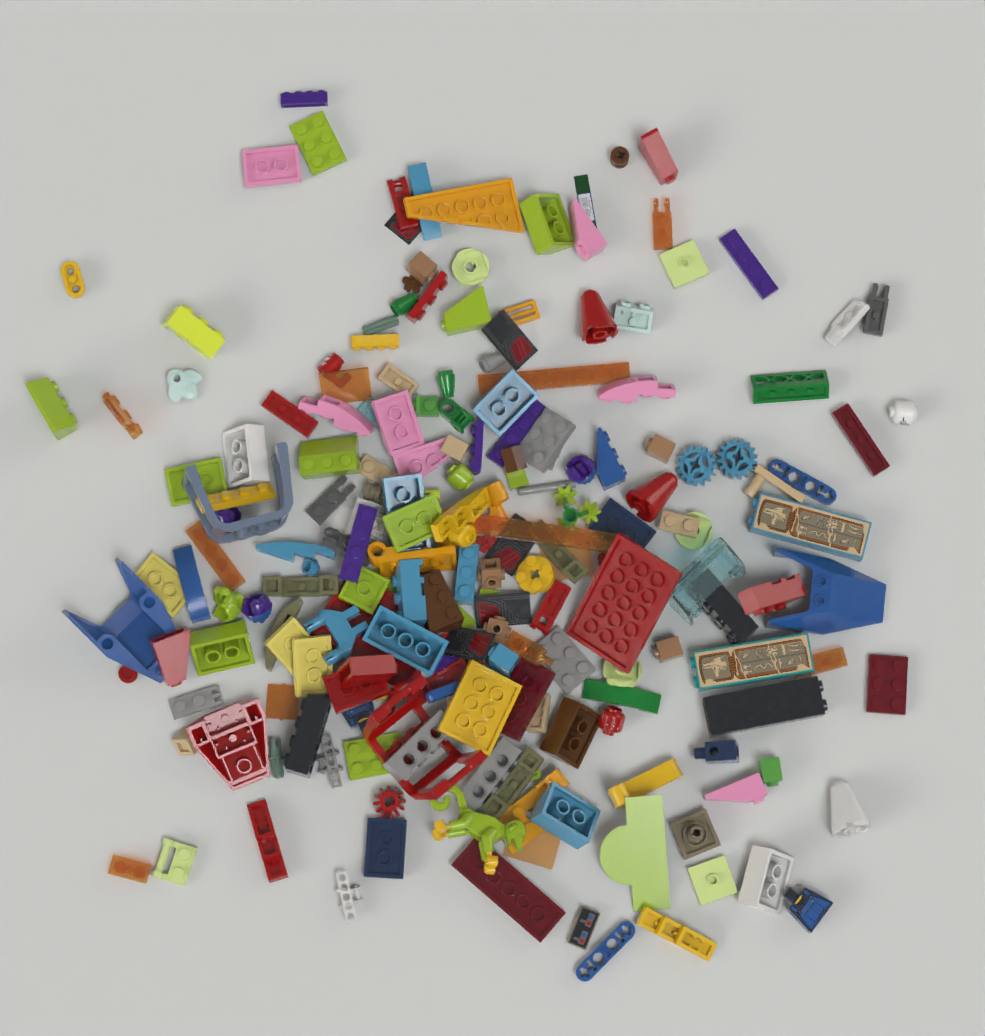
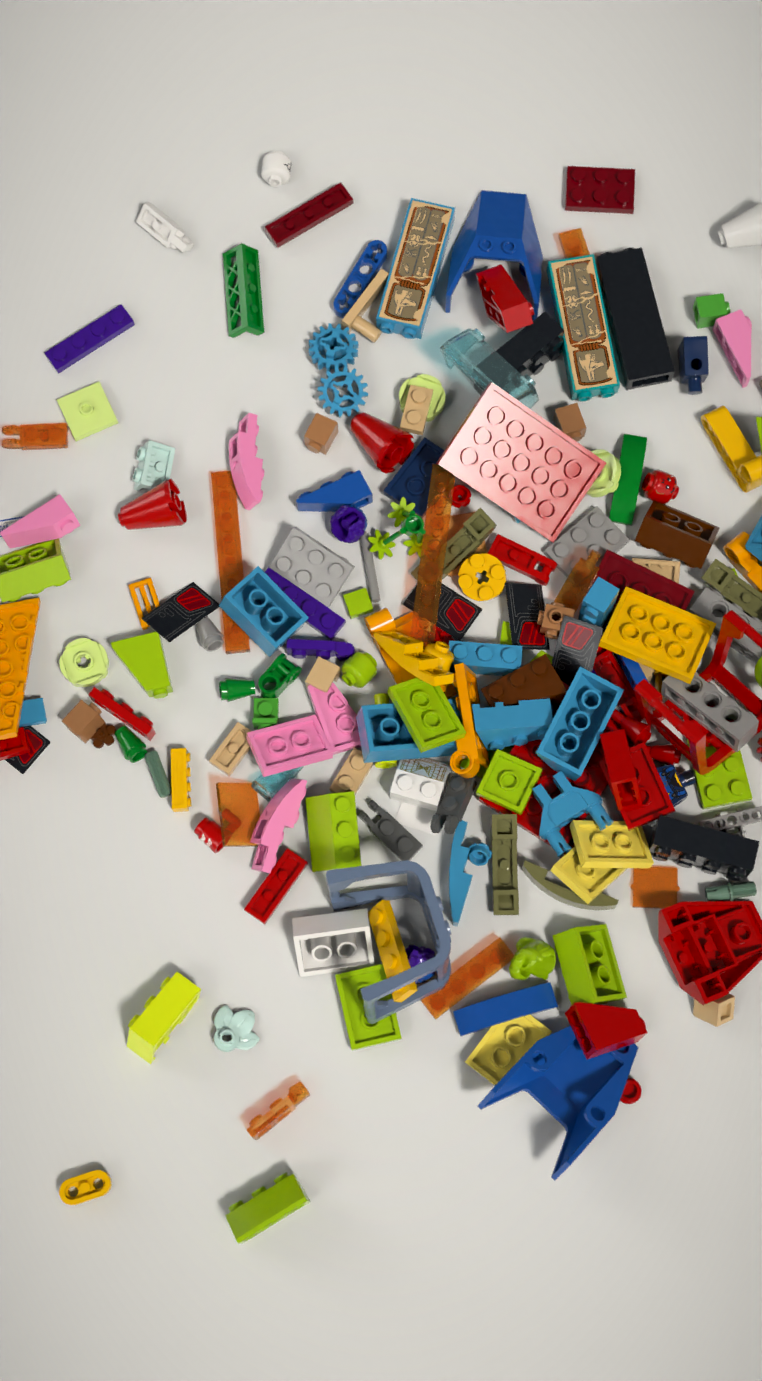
camera: 85 degrees left, 5 degrees down
(195, 702) = (662, 1000): light grey hinge -> none
(257, 607) = (536, 920): dark purple piece -> none
(358, 543) = (452, 787): dark purple plate -> none
(372, 492) = (380, 777): dark tan wheel -> none
(491, 573) = (483, 627): medium nougat brick -> none
(513, 459) = (336, 601): reddish brown piece -> none
(877, 313) = (163, 198): dark grey hinge -> none

